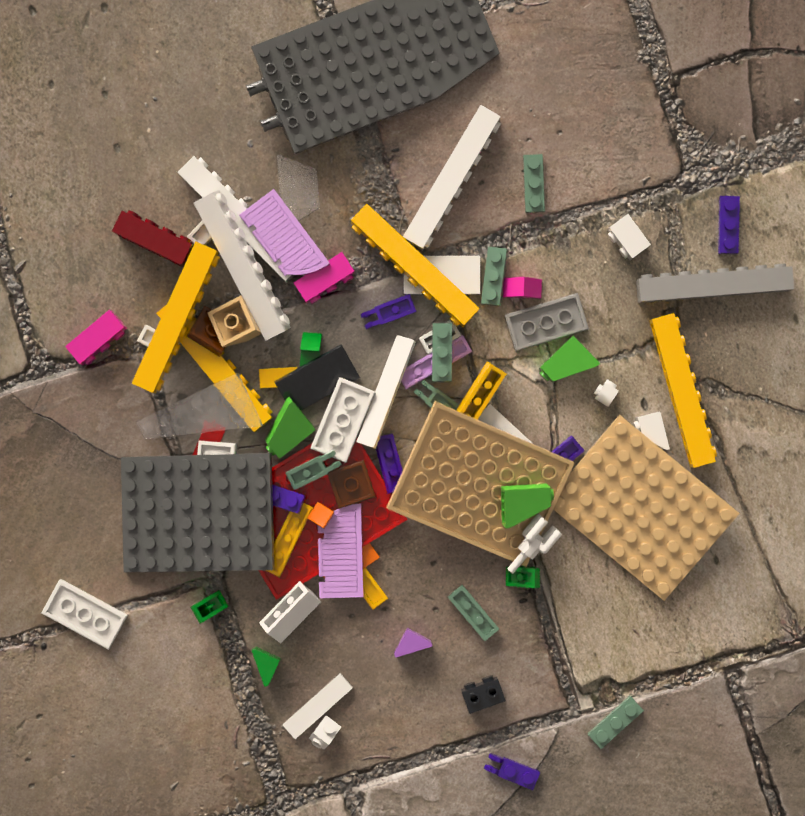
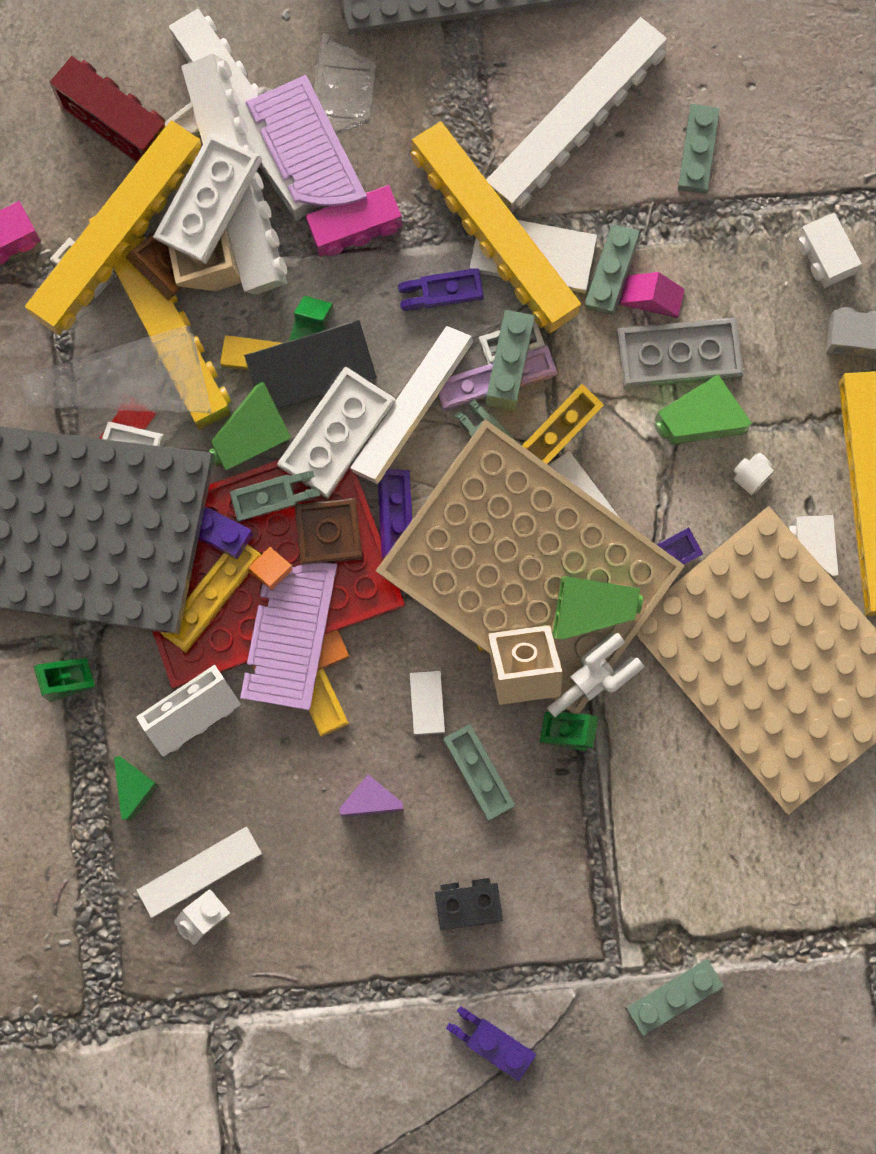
camera: 10 degrees right, 10 degrees down
(230, 288) = (207, 198): none -> white tile
(433, 576) = (427, 703): none -> white tile
(489, 545) = (525, 665): none -> tan slope

